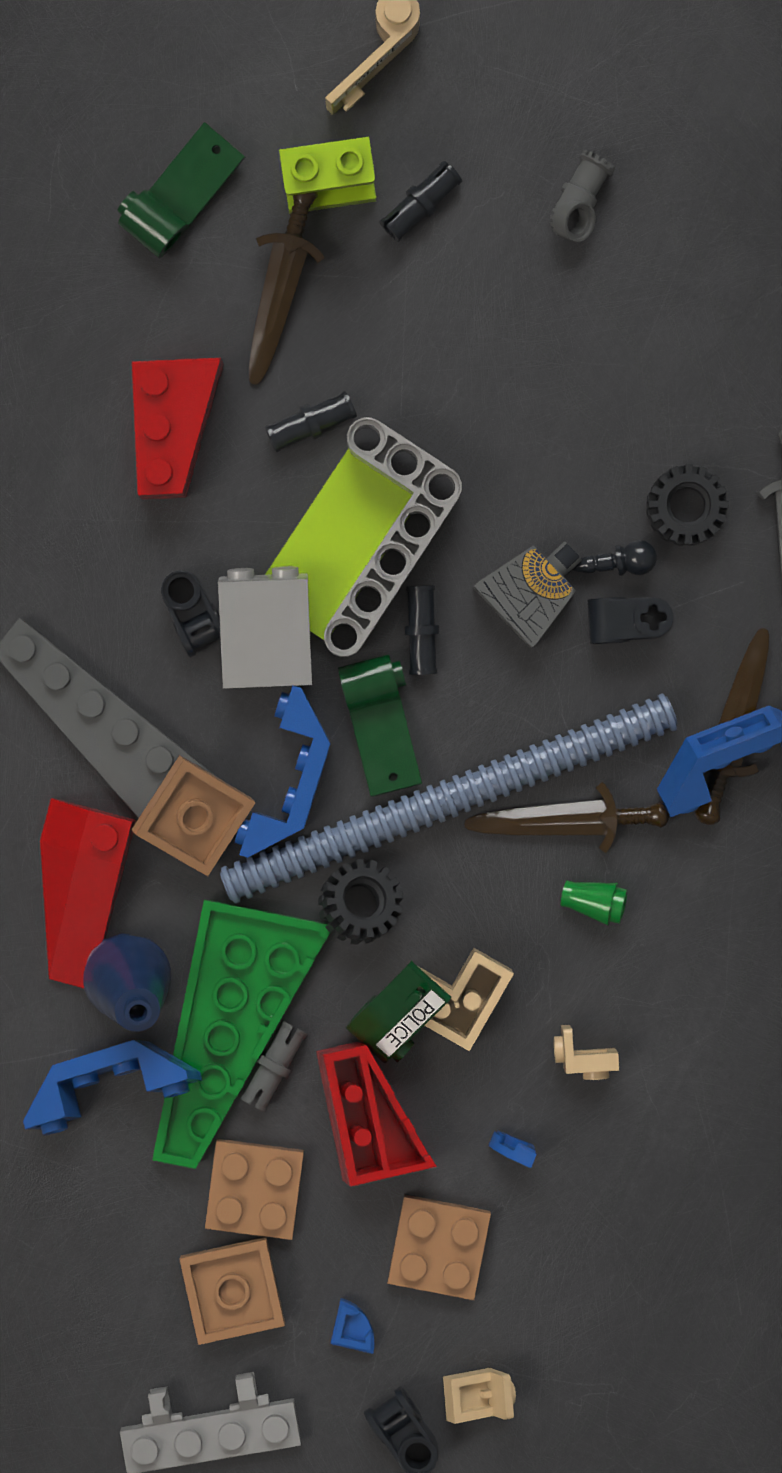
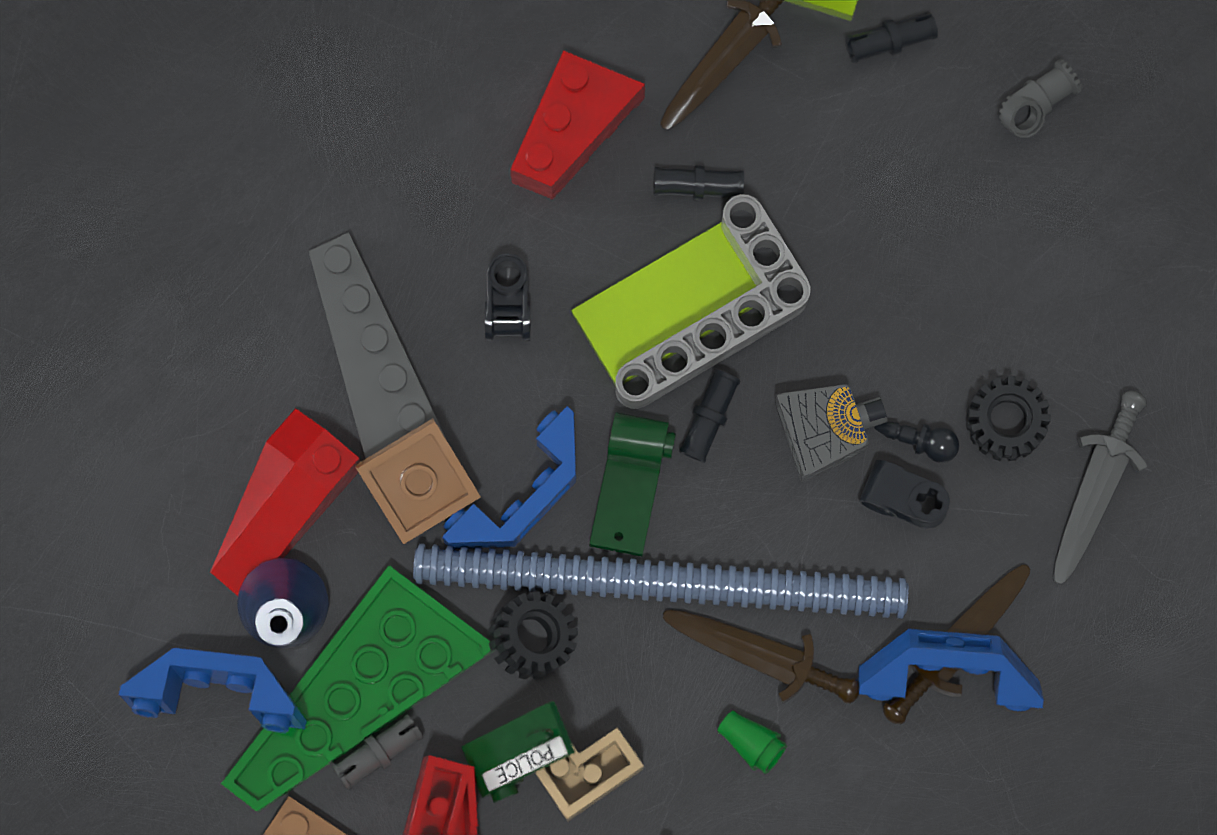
camera: 25 degrees right, 10 degrees down
(265, 628) = (566, 344): light grey panel -> none

